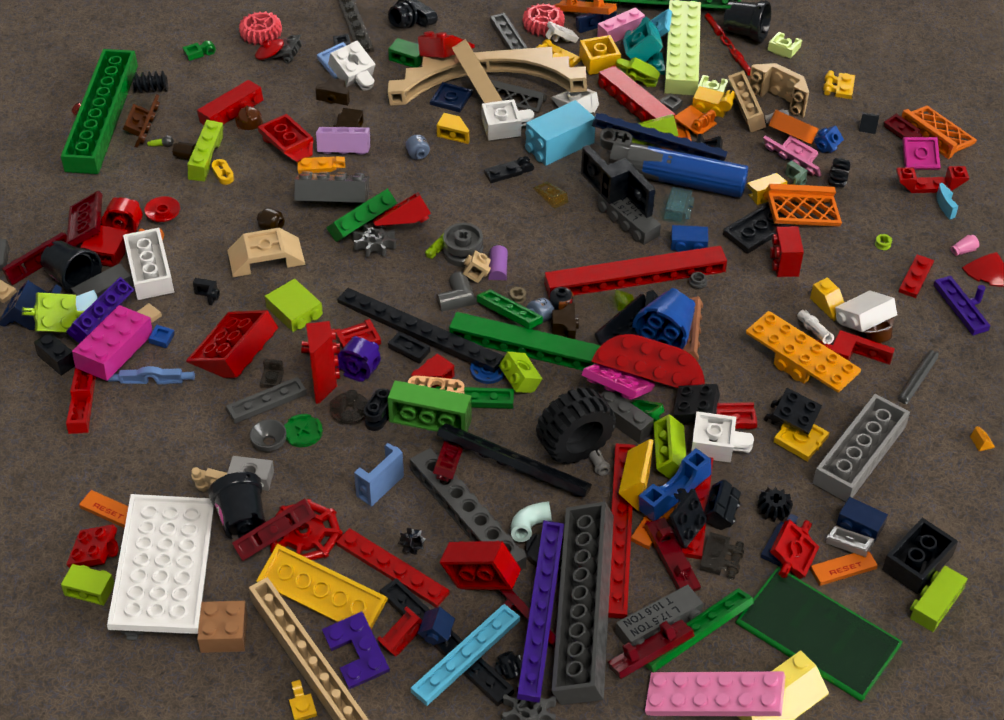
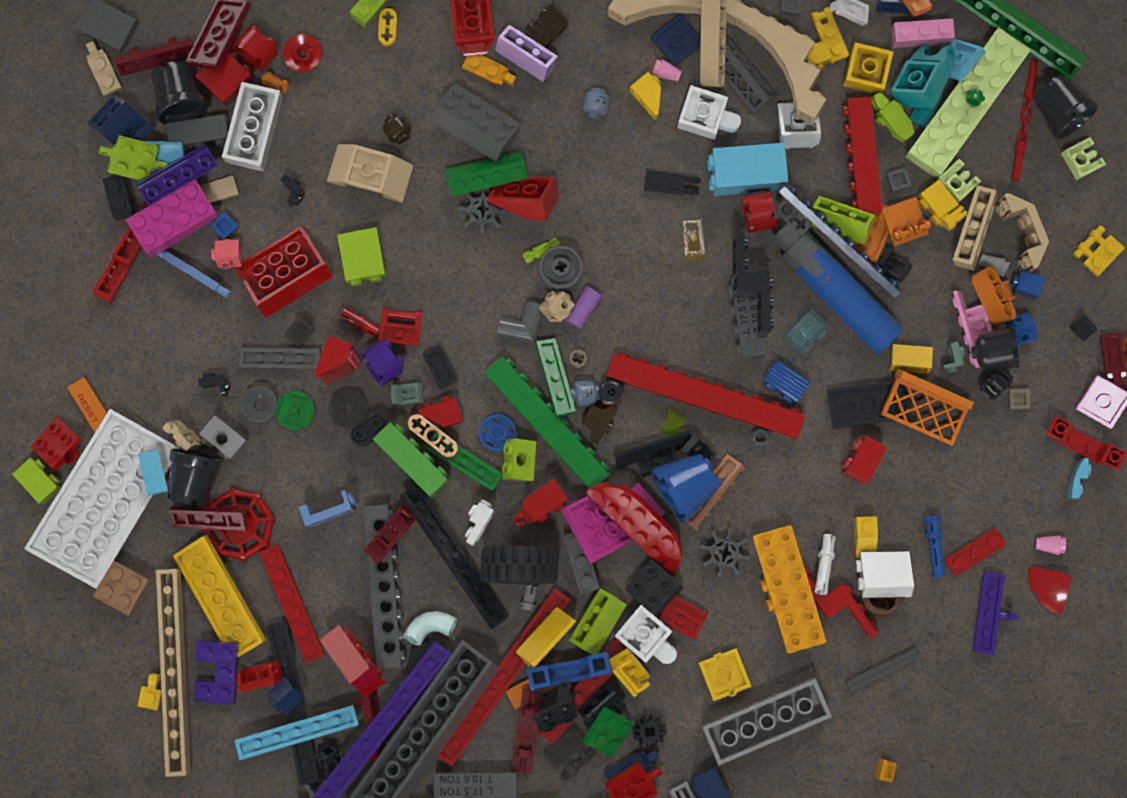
camera: 30 degrees right, 35 degrees up
(176, 350) = (227, 253): none -> coral brick
(202, 518) = (152, 472): none -> medium azure slope
(218, 438) = (211, 380): none -> black bracket
(396, 371) = (406, 394): none -> sand green bracket
(411, 541) = (319, 590): black gear -> none
(421, 330) = (461, 351): black plate -> none
(458, 111) = (665, 70): none -> bright pink cone
(517, 422) = (481, 516): none -> white plate
(563, 377) = (541, 504): none -> red hinge
(588, 138) = (759, 211): none -> red brick
(652, 409) = (606, 571): green piece -> none
(686, 35) = (974, 97): none -> green plate
(725, 467) = (630, 671): none -> yellow hinge
(732, 358) = (714, 550): none -> dark grey gear
(741, 516) = (608, 731): none -> green plate
(794, 411) = (734, 650): black plate -> none
(811, 115) = (1028, 284): none -> blue brick
(824, 145) = (996, 349): none -> black cylinder
(862, 178) = (1018, 399): none -> dark tan plate
(878, 278) = (934, 535): none -> blue pin
(883, 246) = (971, 488): lime bush -> none

